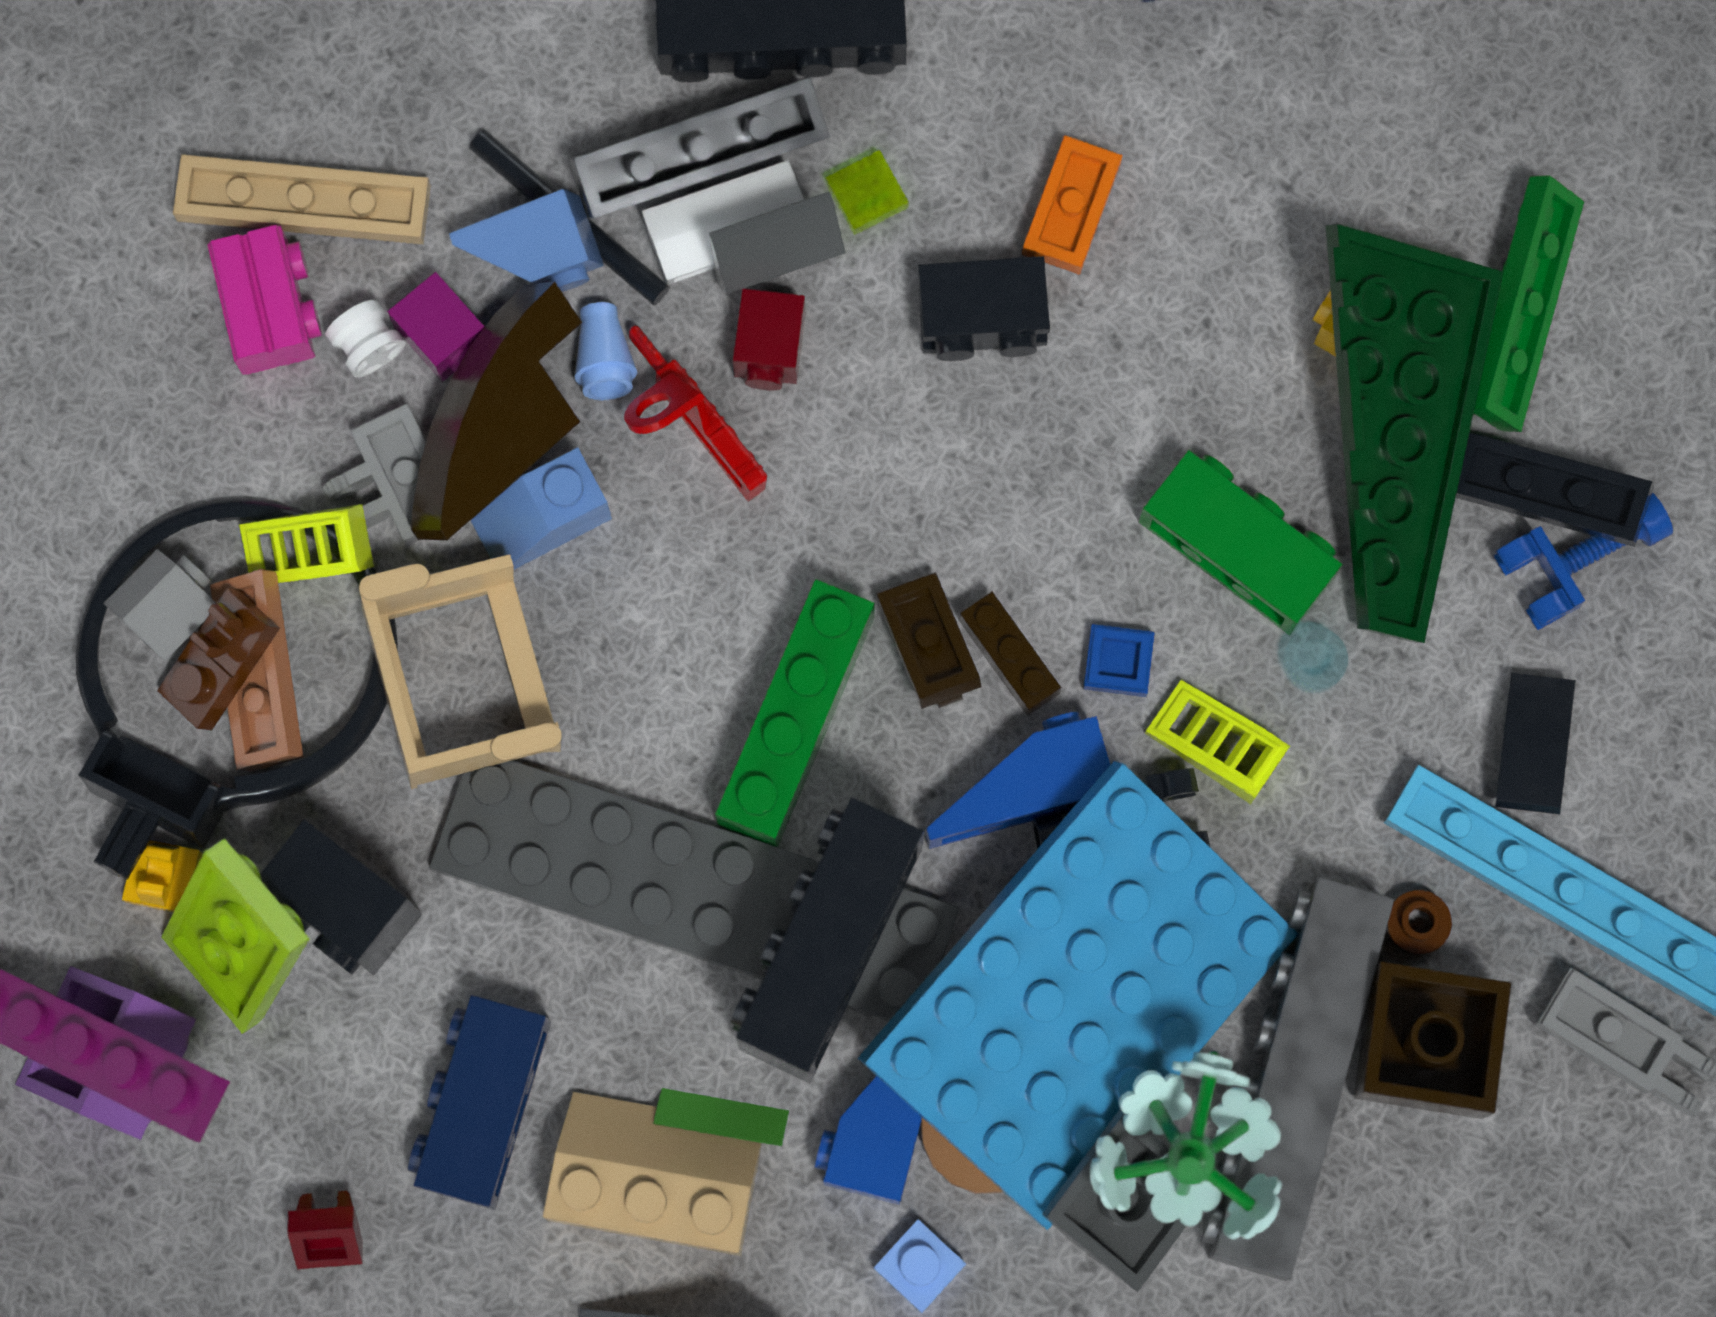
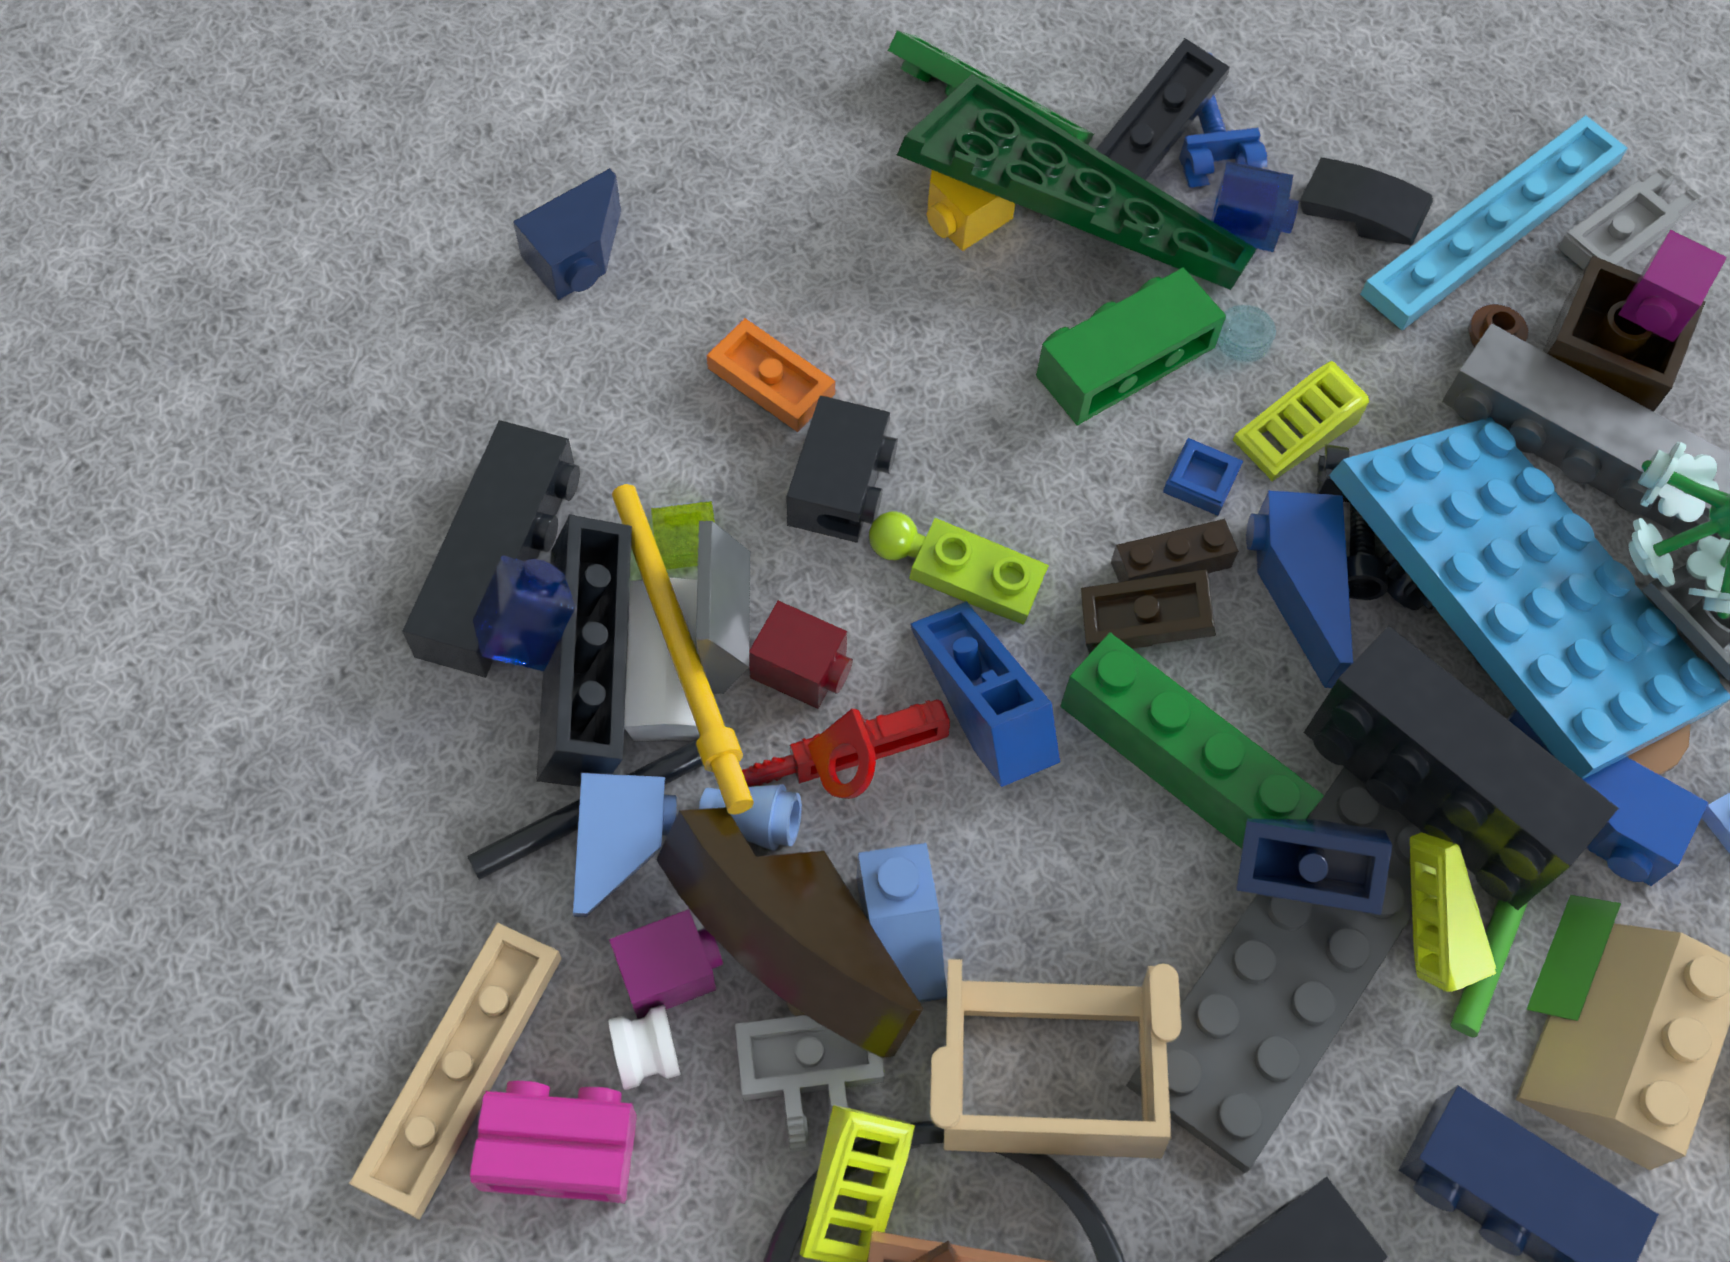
camera: 75 degrees left, 15 degrees down
(636, 293) = (717, 743): none -> yellow bar
(685, 1043) = (1477, 996): none -> bright green bar
(692, 990) = (1446, 921): none -> neon yellow slope
(694, 78) = (523, 613): none -> clear blue brick
(698, 841) = (1316, 863): none -> dark blue slope
(793, 516) = (990, 694): none -> blue slope
(927, 455) = (961, 564): none -> lime plate
(1473, 1059) = (1672, 285): none -> magenta brick
(1474, 623) = (1255, 204): none -> clear blue brick

